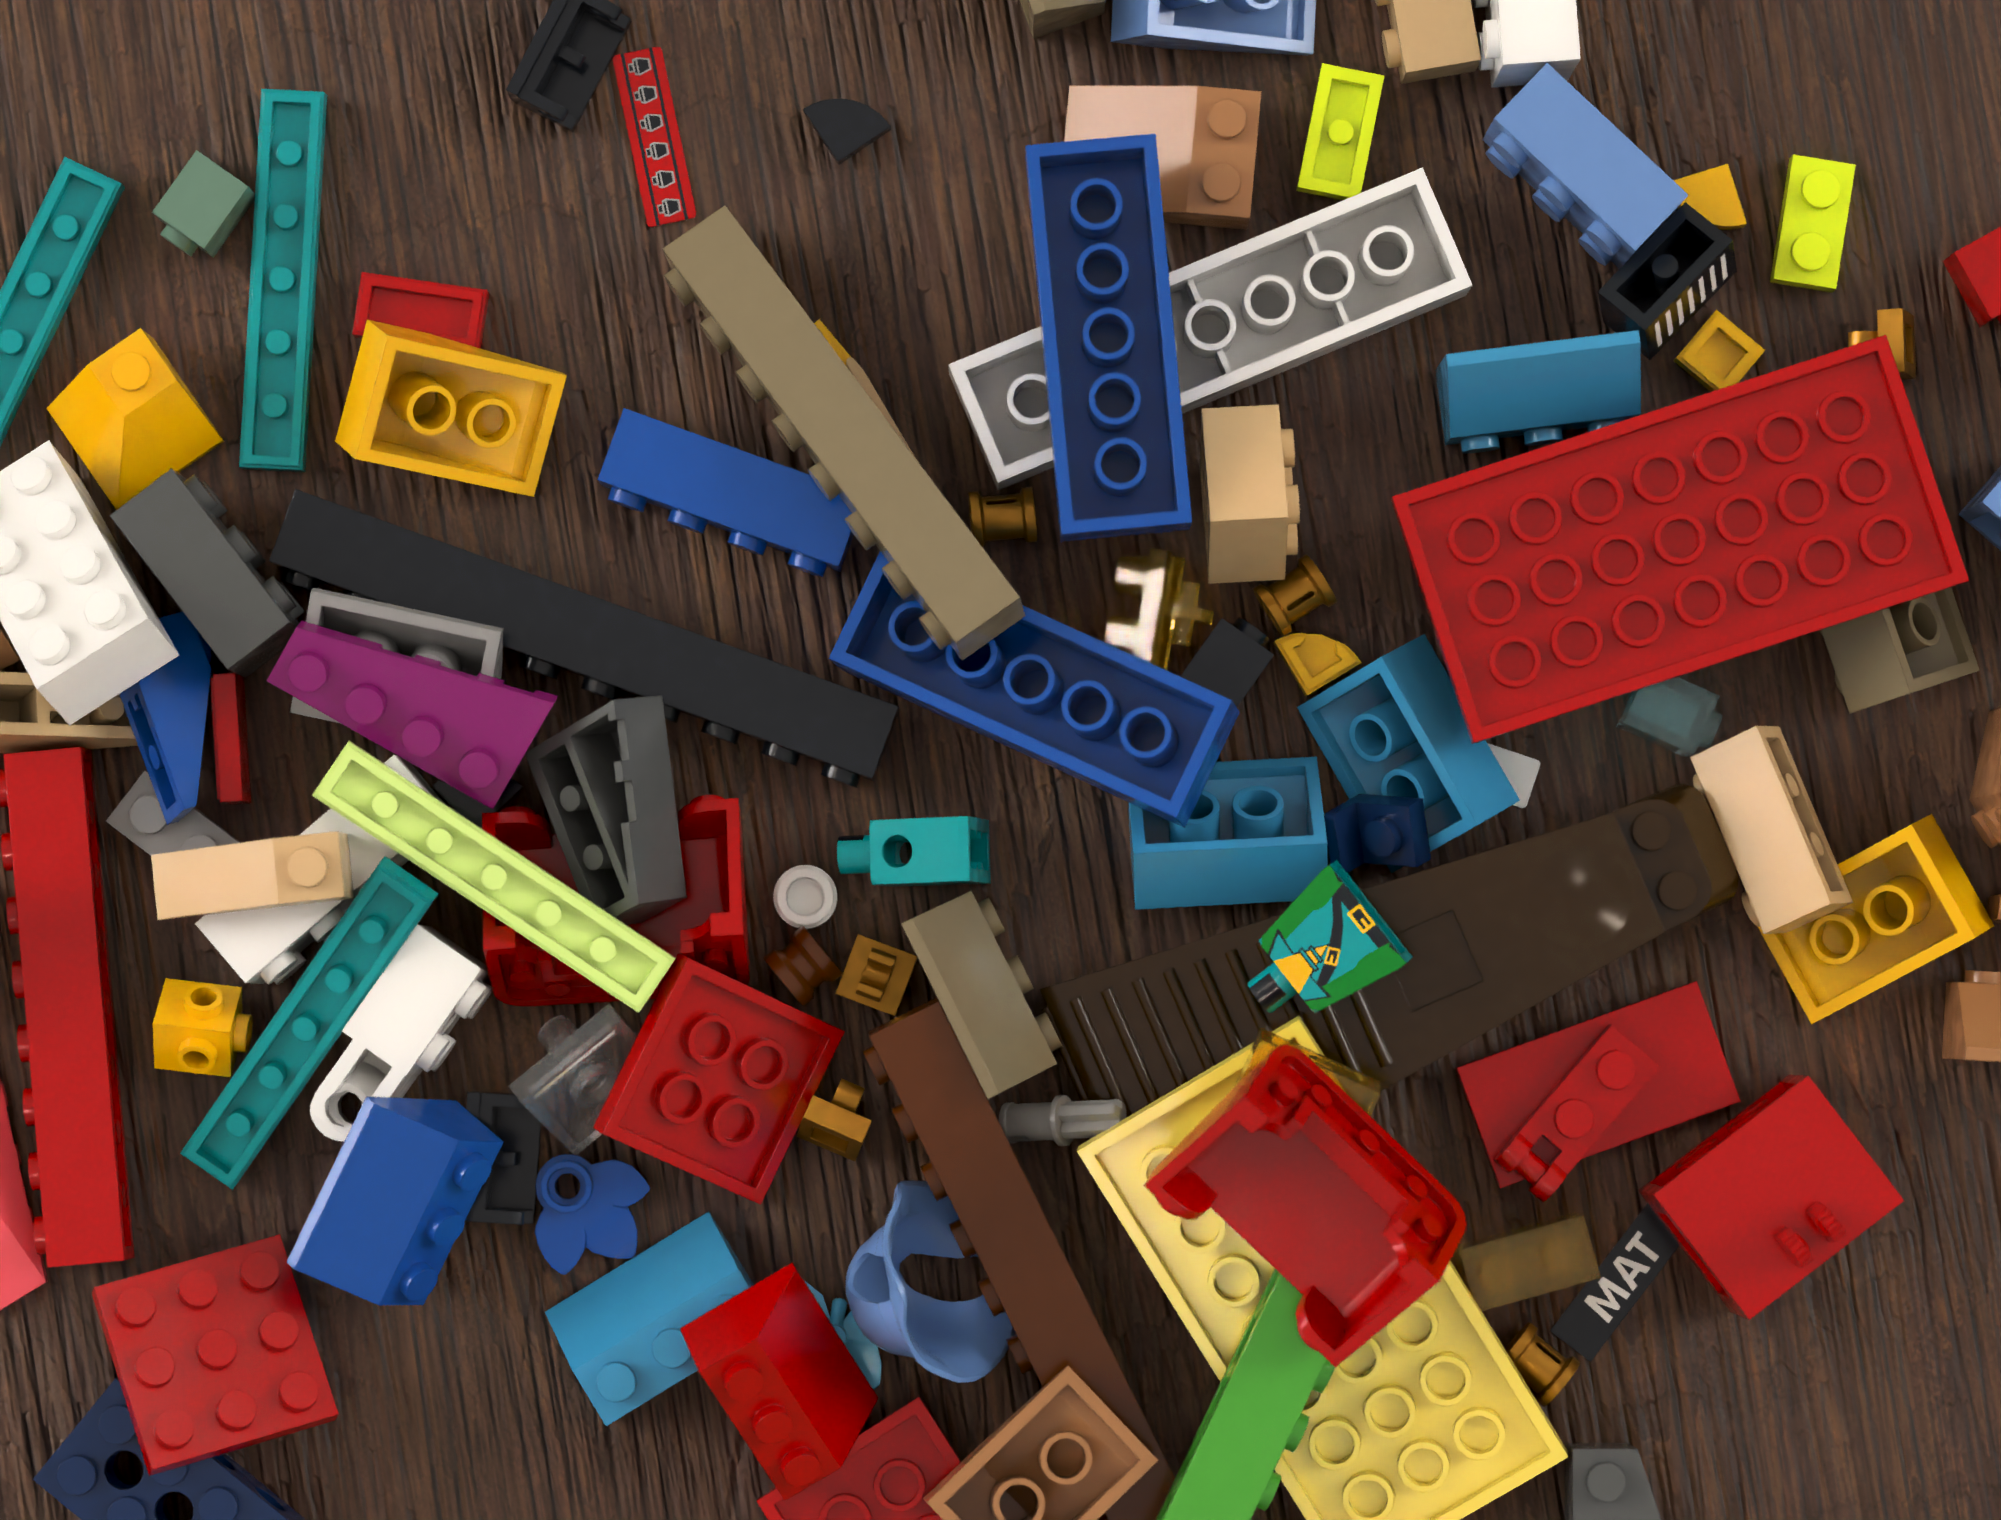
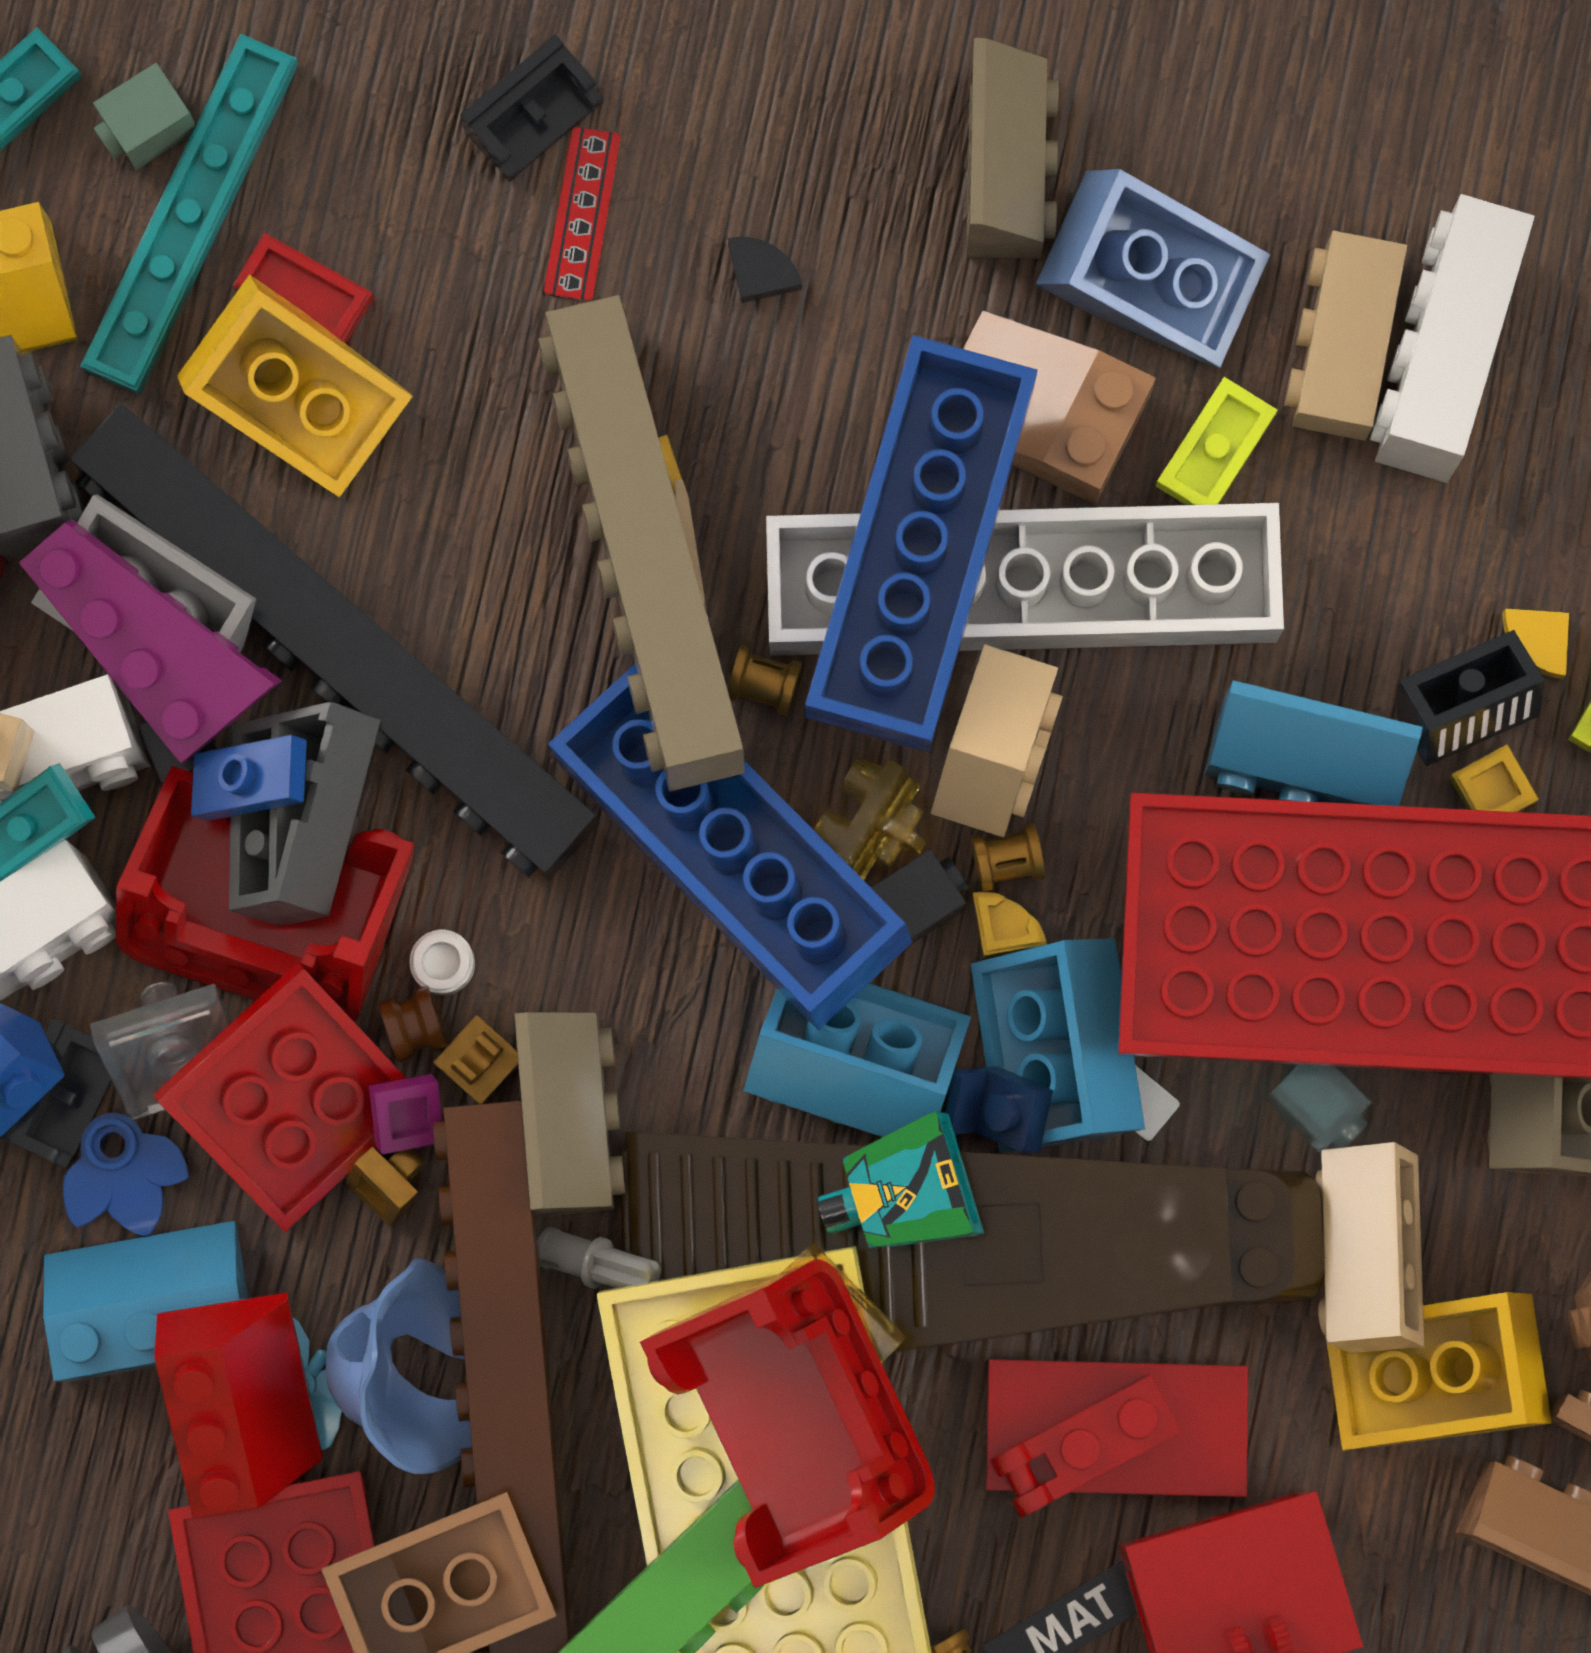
camera: 25 degrees right, 5 degrees down
(493, 876) = (153, 822): yellowish green tile -> none
(563, 799) = (249, 778): none -> blue plate
(725, 489) = (516, 555): blue brick -> none
(831, 1052) = (405, 1113): none -> magenta plate
(942, 851) = (582, 968): teal torso -> none
(1527, 1261) = (984, 1569): clear yellow brick -> none
(1582, 168) = (1428, 559): medium blue brick -> none

